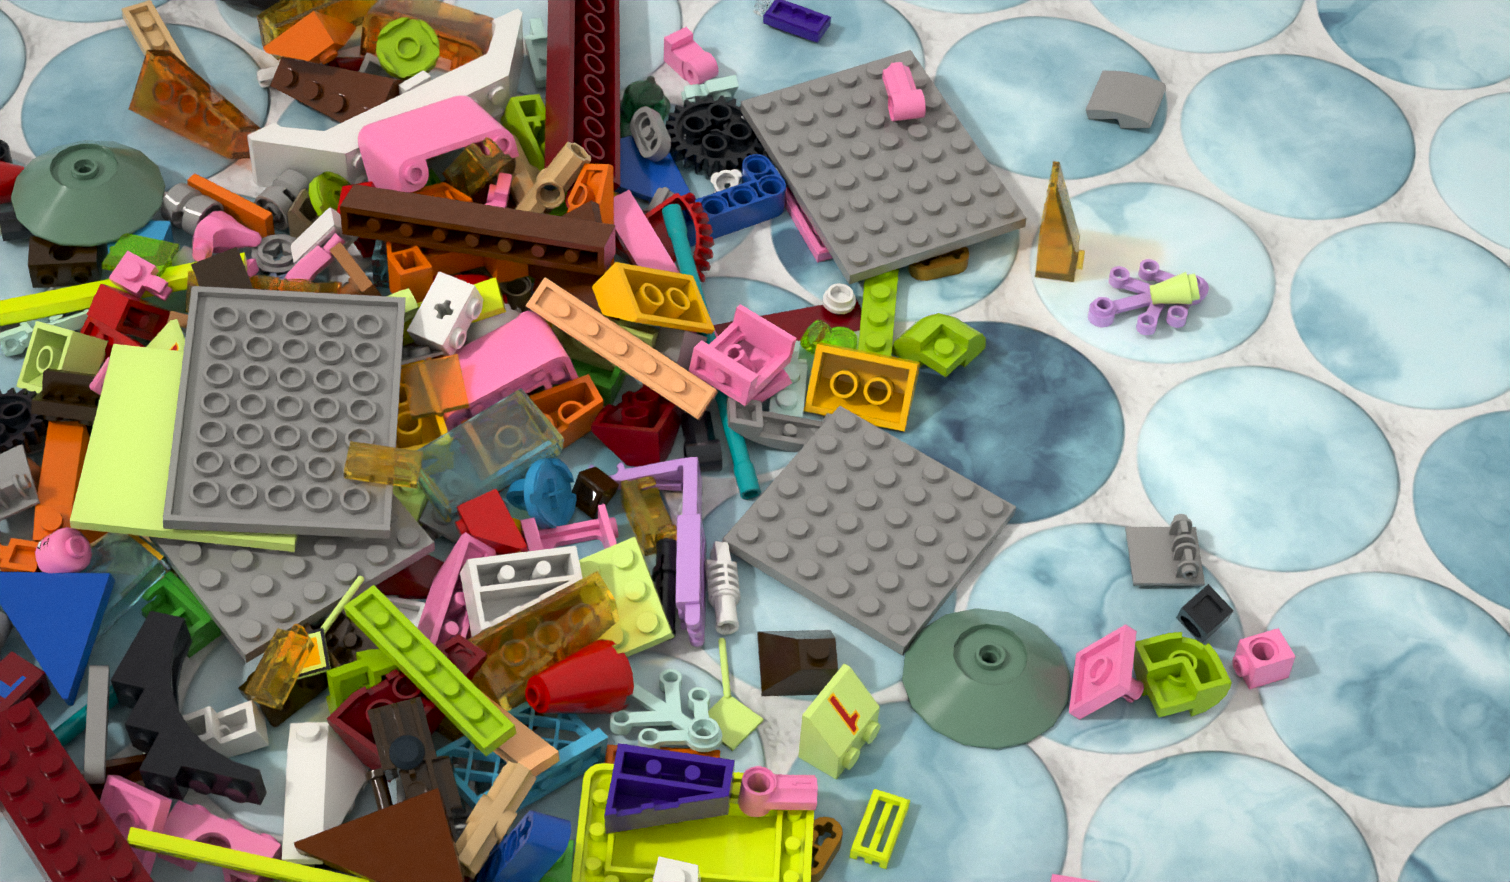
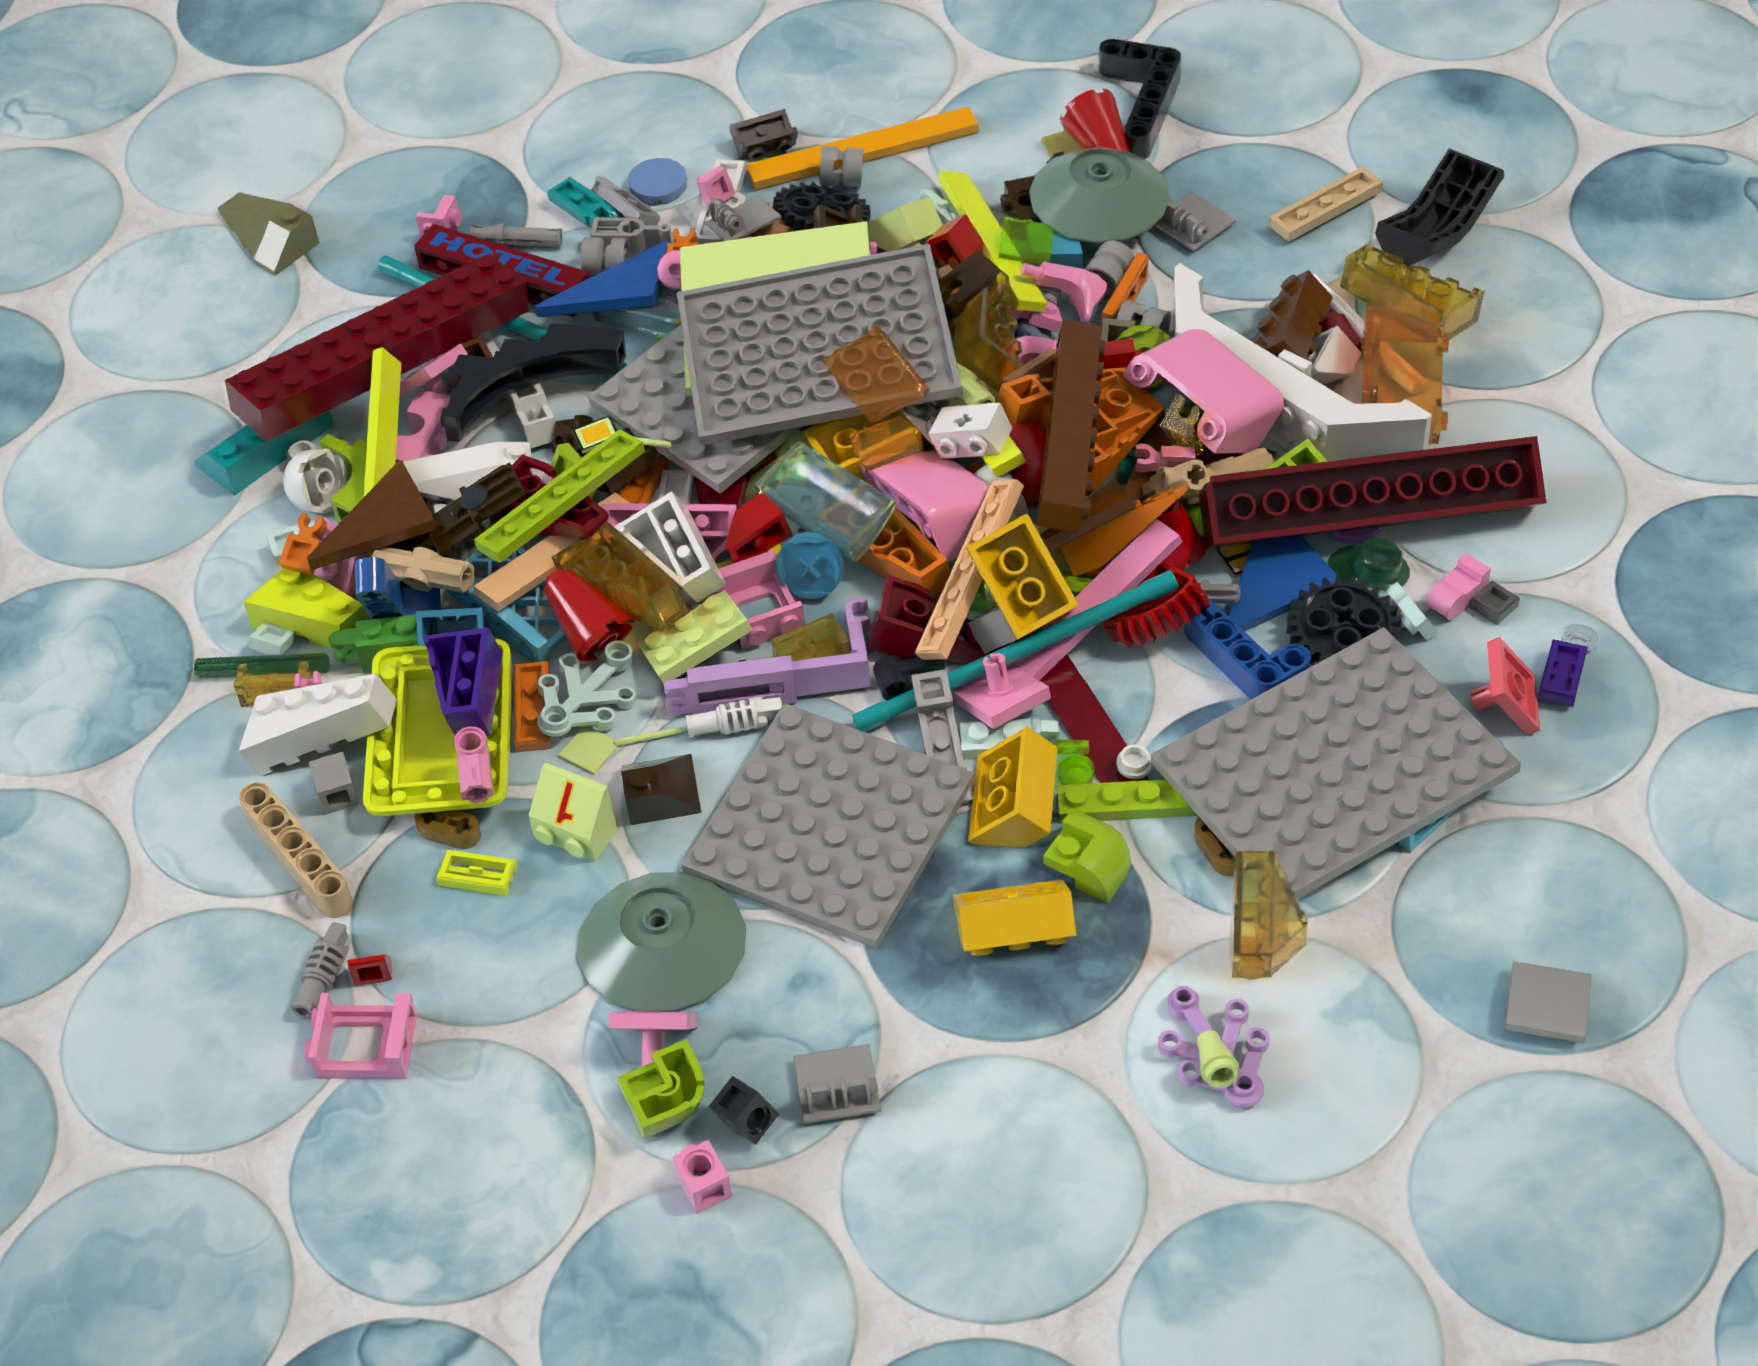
camera: 90 degrees right, 0 degrees up
(97, 724) = (514, 328): light grey beam -> none
(138, 276) = (992, 238): bright pink plate -> none
(143, 136) = (1193, 221): none -> light grey hinge
(188, 105) = (1236, 233): clear orange wedge -> none
(280, 667) = (573, 418): clear yellow panel -> none
(312, 39) = (1323, 278): orange wedge -> none
(364, 361) = (876, 375): none -> clear orange piece
(383, 464) = (761, 413): clear yellow plate -> none
(407, 48) = (1336, 344): lime tile -> none
(572, 795) = (447, 621): none -> dark azure torso
(593, 489) = (835, 601): dark brown slope -> none
(650, 134) = (1303, 572): light grey plate -> none
(709, 42) = (1494, 602): none -> dark grey tile
(724, 177) = (1273, 641): white plate -> none
(732, 377) = (965, 655): bright pink window -> none
(818, 45) = (1510, 687): none -> coral tile
(904, 99) = (1412, 755): bright pink piece -> none
(1000, 403) = (1015, 916): none -> yellow slope

